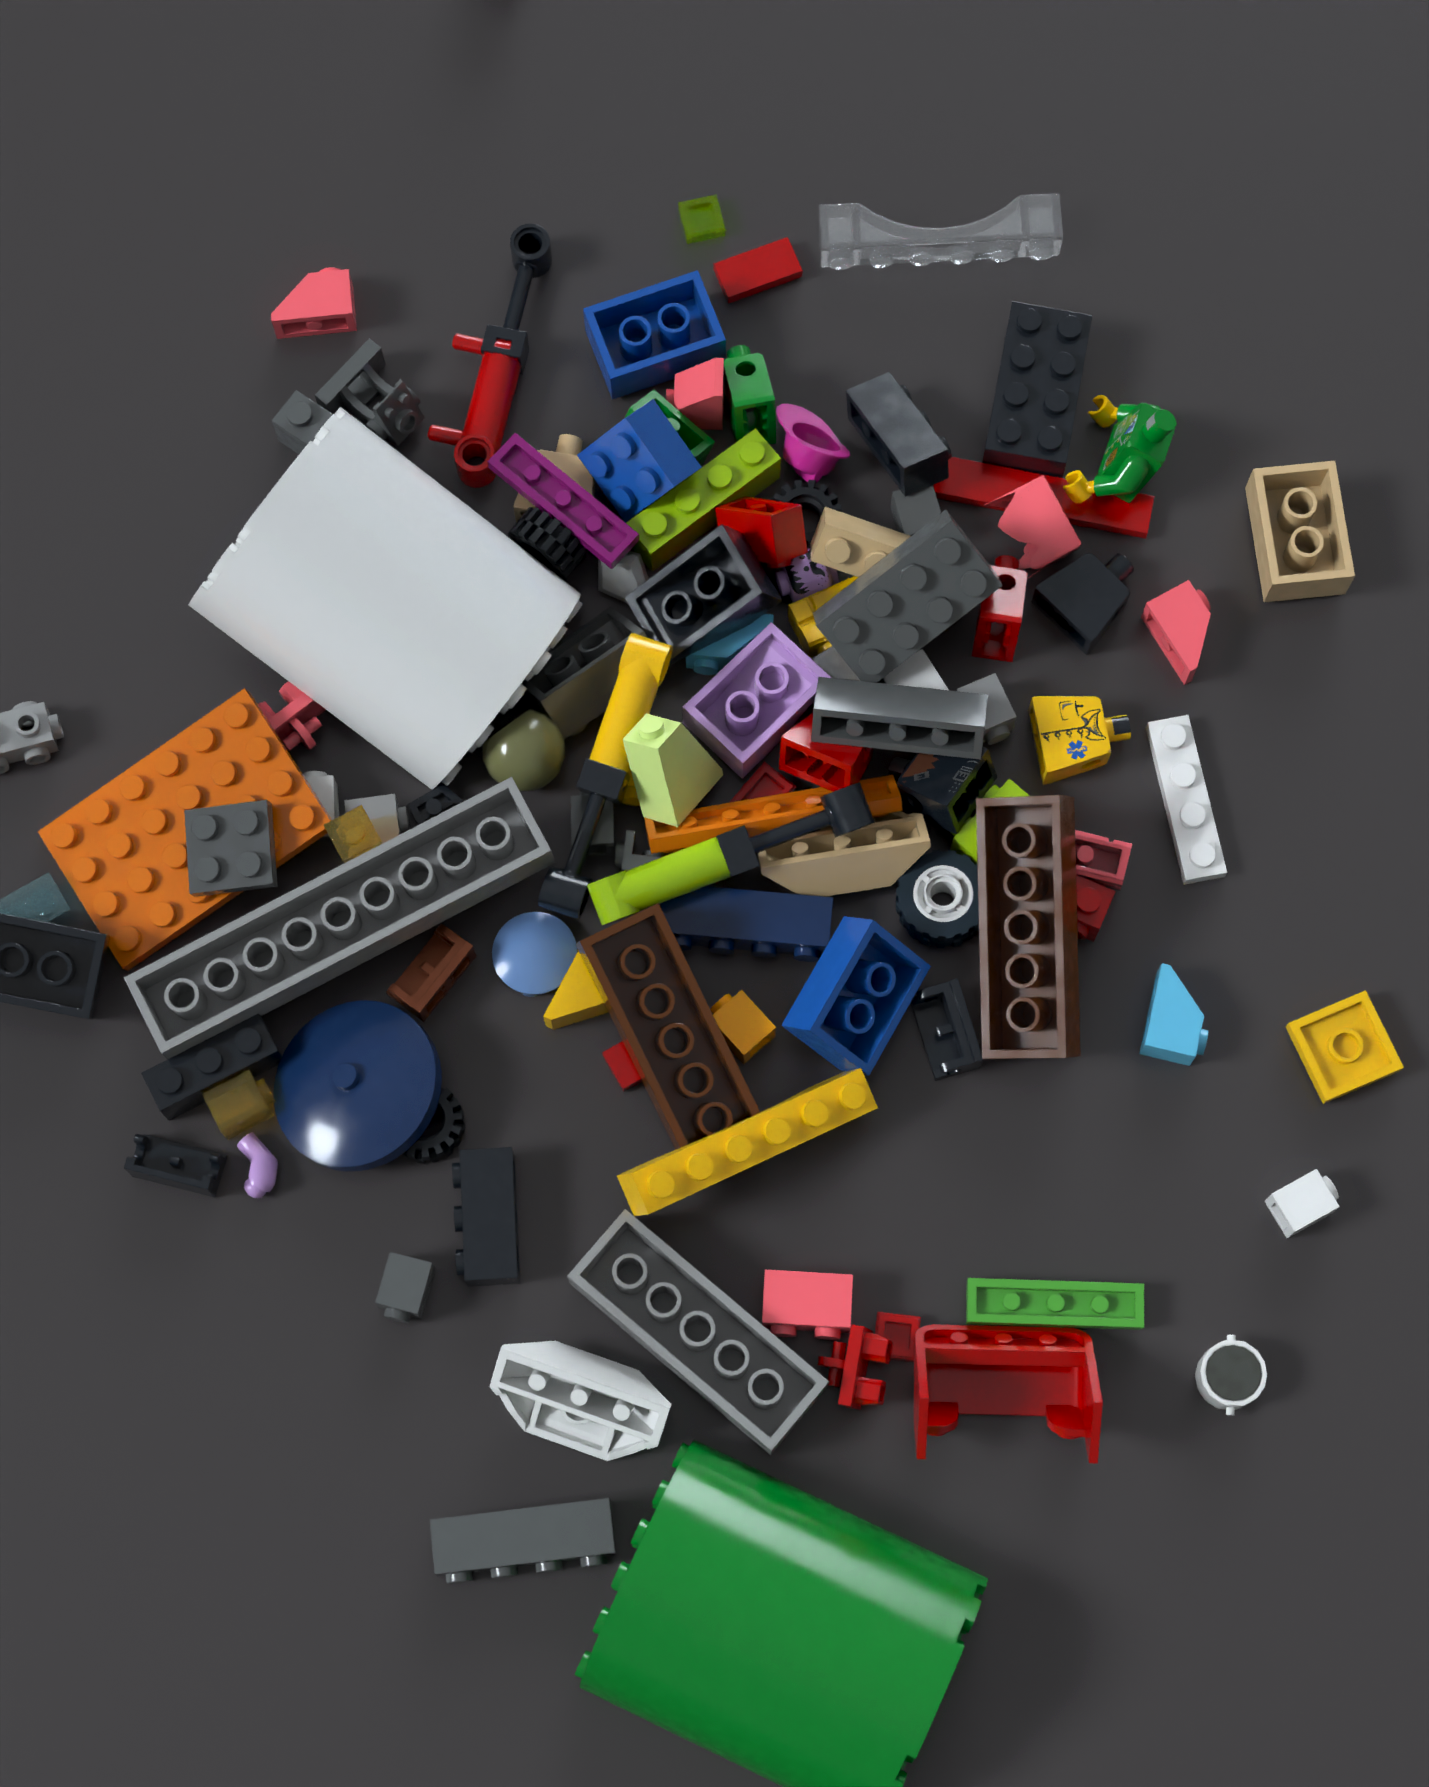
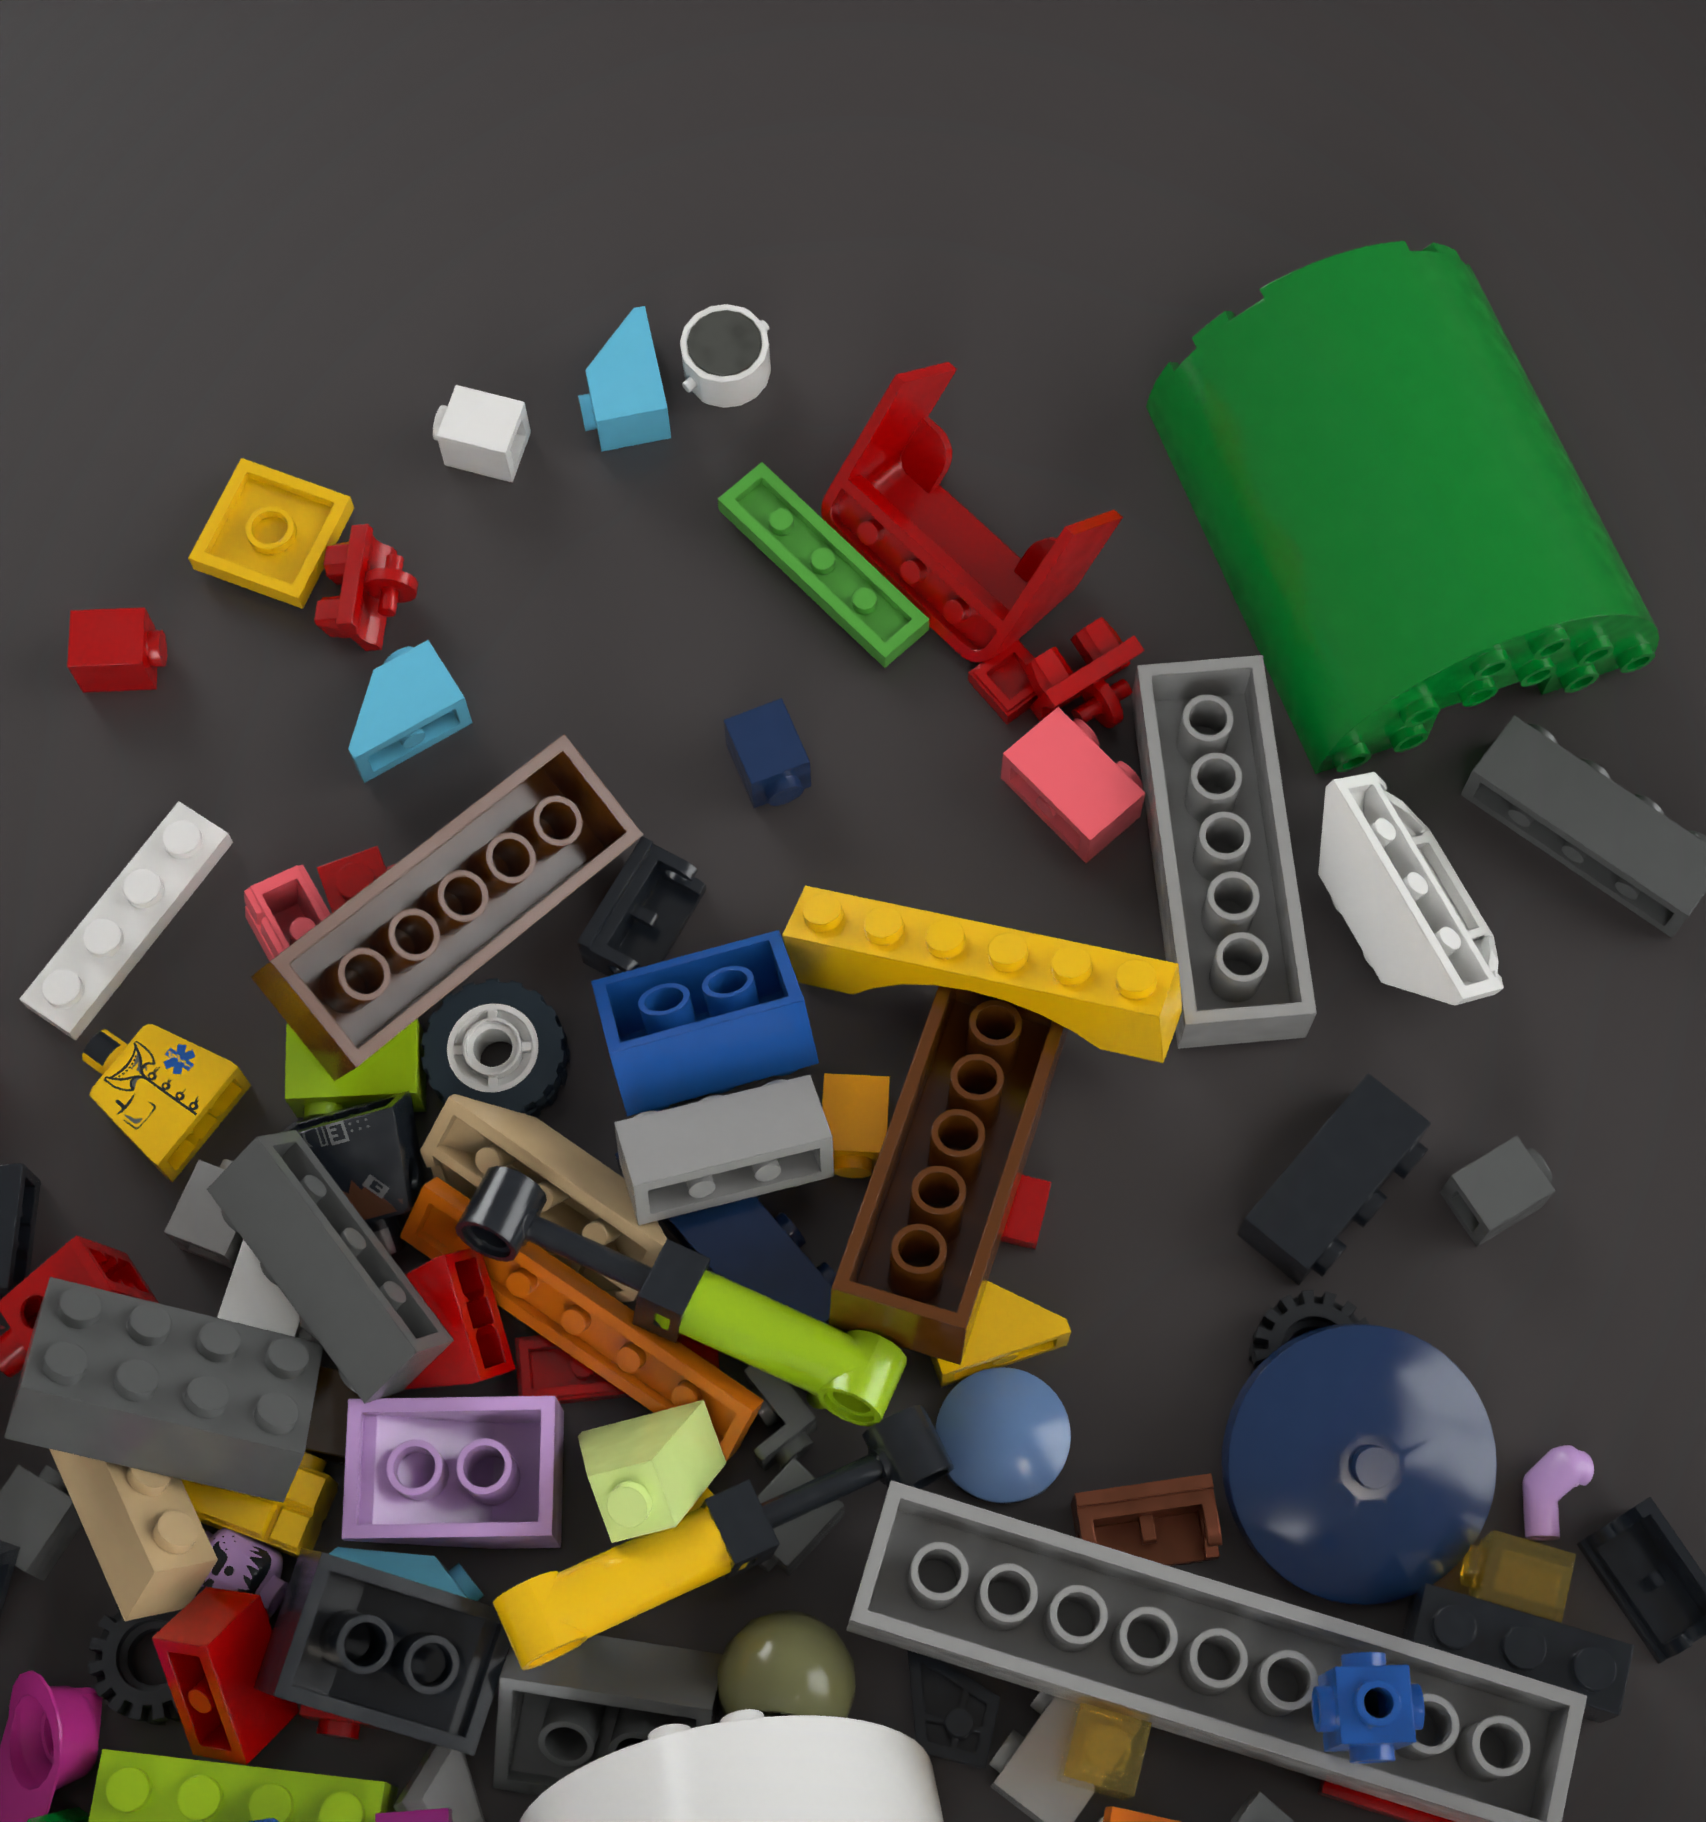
camera: 135 degrees left, 5 degrees down
(258, 955) = (1341, 1712): none -> blue brick
(780, 936) = (724, 1149): none -> light grey brick
(971, 1169) = (768, 754): none -> dark blue brick
(1260, 1304) = (626, 388): none -> medium azure slope
(1262, 1063) = (370, 588): none -> red hips
(1344, 912) = (115, 649): none -> red brick

